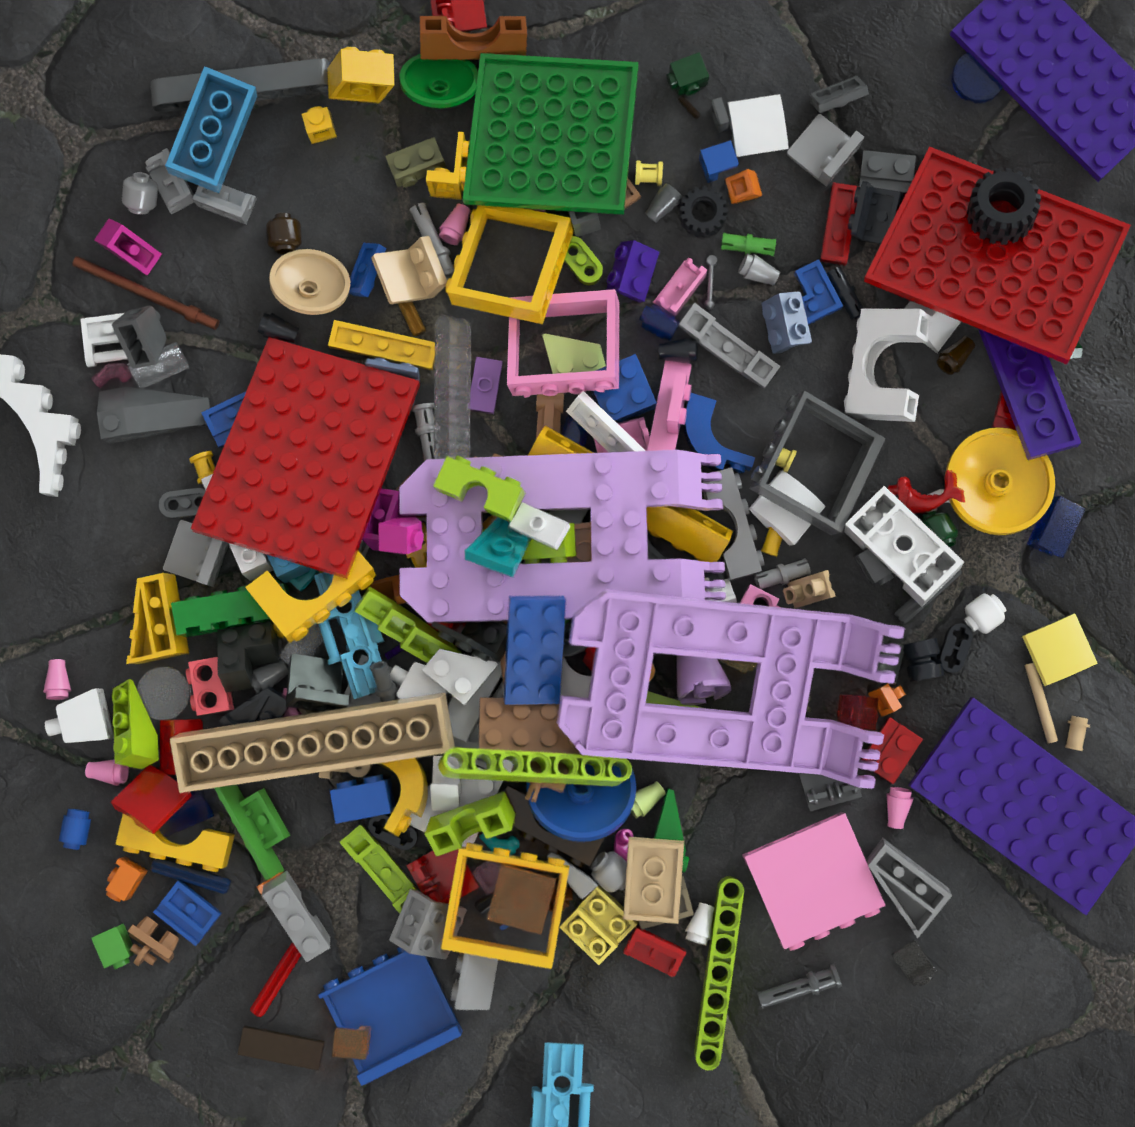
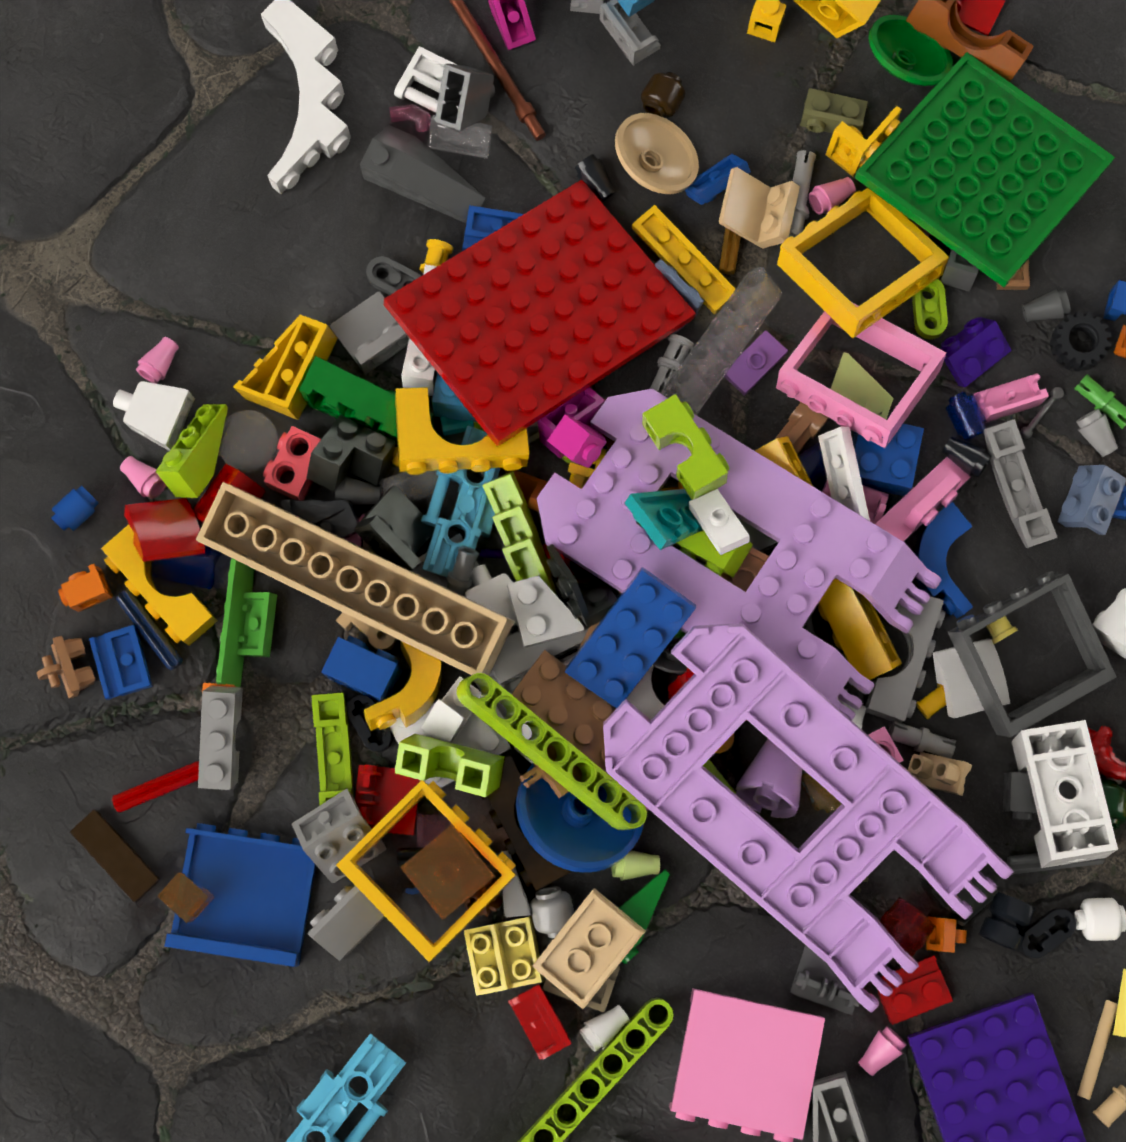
camera: 30 degrees right, 5 degrees down
(113, 947) = (29, 645): bright green brick -> none
(511, 843) = (458, 797): teal arm -> none
(621, 842) = (582, 890): dark pink arm -> none
(649, 173) = (1052, 270): light yellow bush -> none

